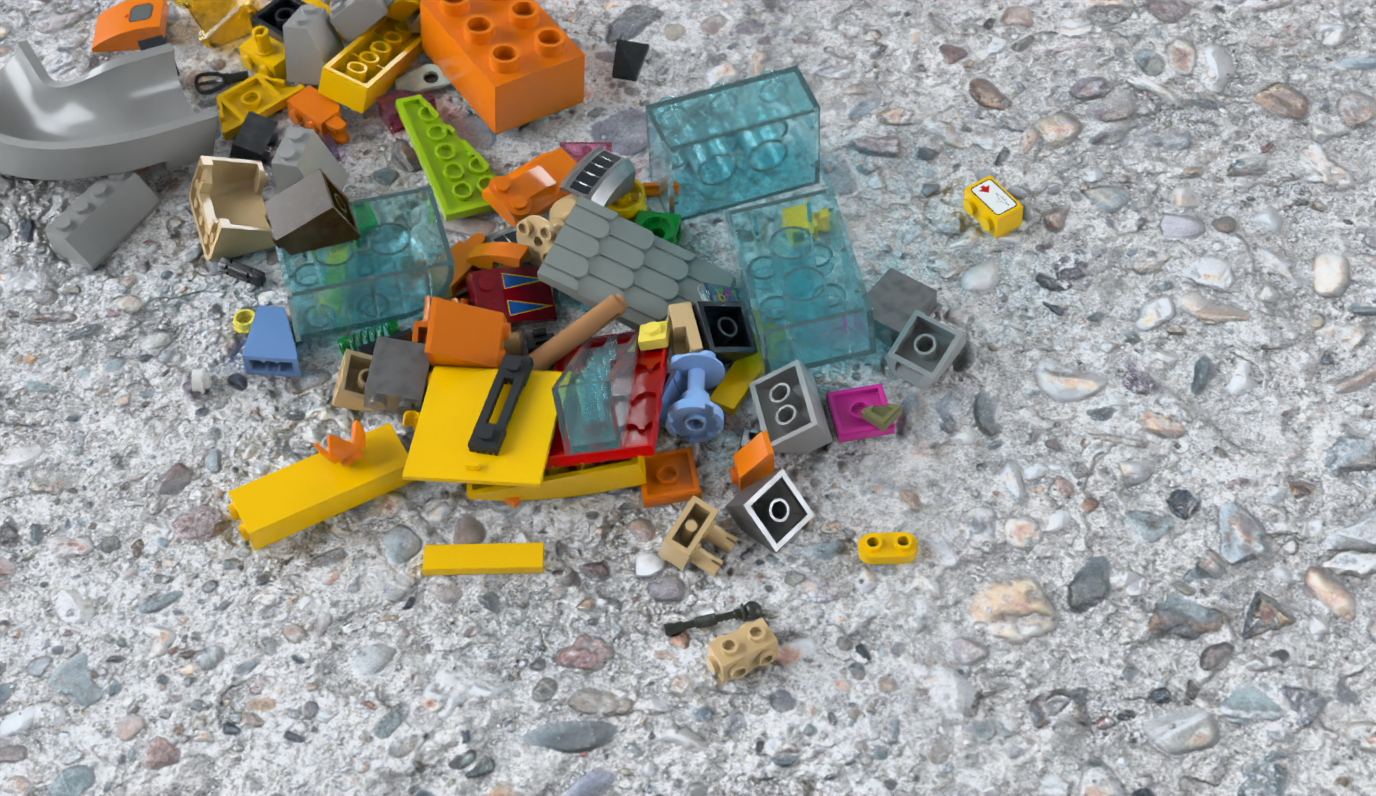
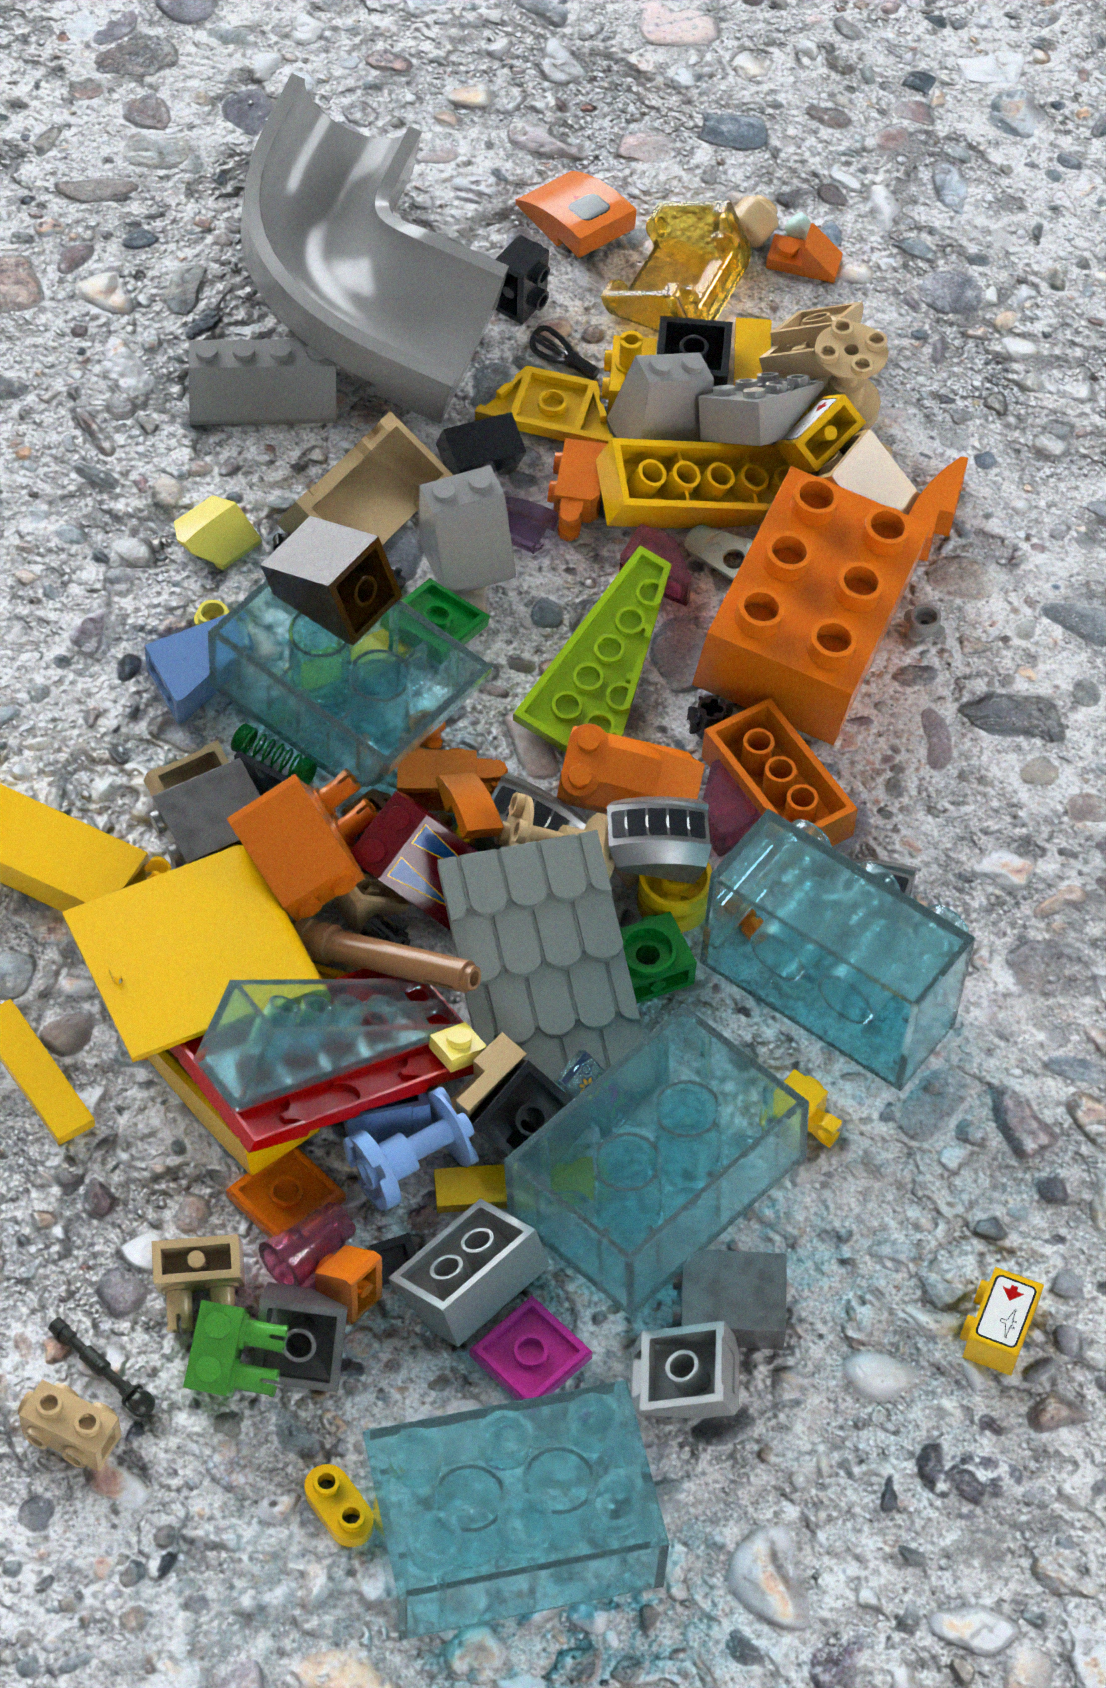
camera: 50 degrees right, 5 degrees up
(184, 290) = (217, 532): none -> light yellow slope
(200, 380) = (96, 629): white plate -> none
(343, 450) = (69, 831): orange piece -> none
(489, 436) = (163, 964): black container -> none
(525, 137) = (707, 713): none -> black gear
(596, 120) = (779, 770): none -> orange brick
(629, 59) = (942, 748): black slope -> none
(714, 477) = (299, 1249): none -> clear pink plant
(754, 548) = (217, 1351): none -> bright green brick
(881, 416) = (531, 1378): olive tile -> none
(960, 458) = (514, 1509): none -> clear light blue brick

